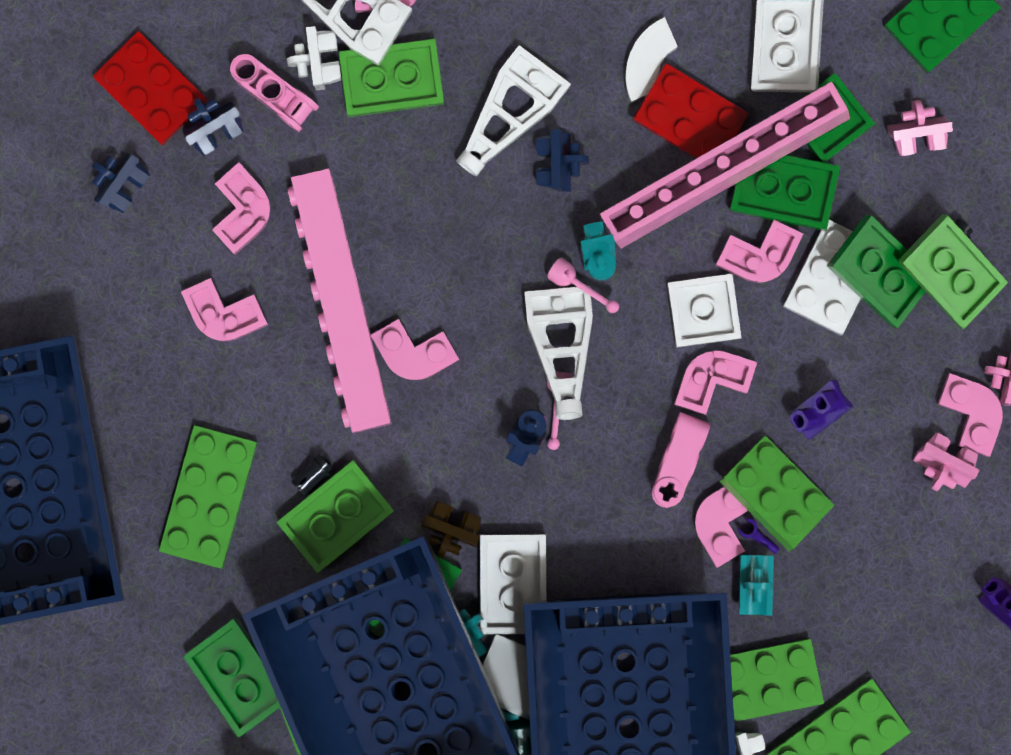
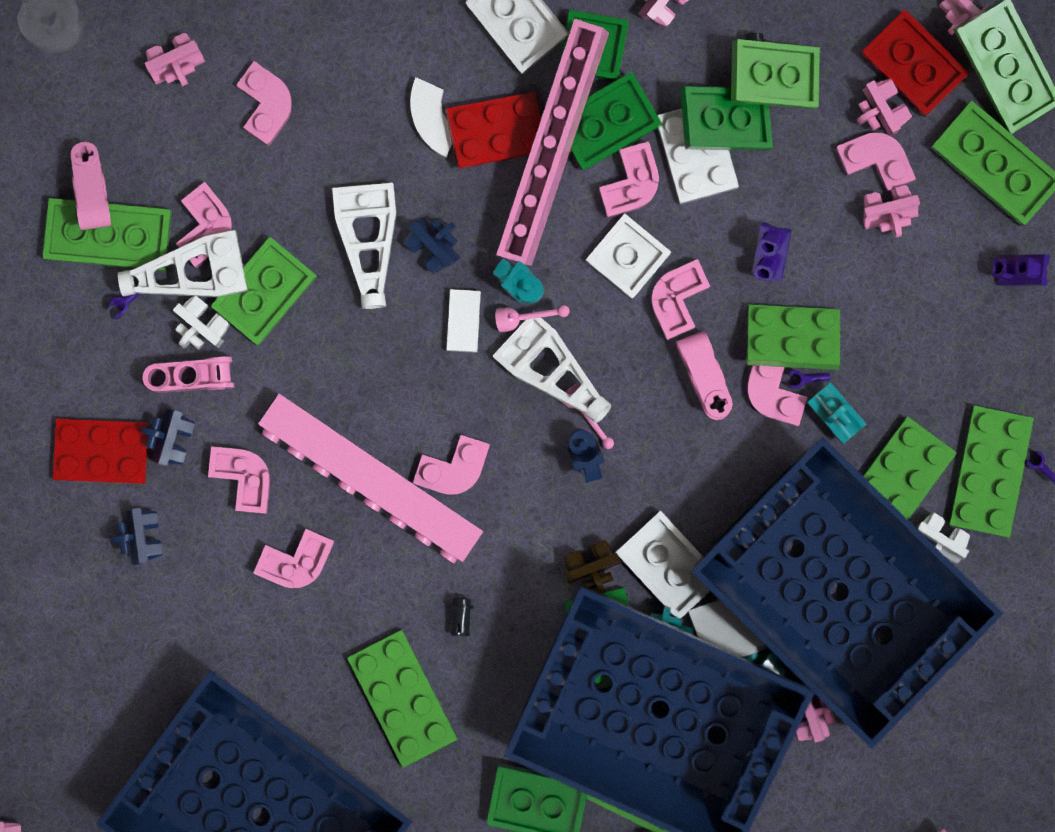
camera: 45 degrees left, 0 degrees up
(335, 516) = (503, 631): bright green plate -> none
(527, 243) = (463, 320): none -> white tile

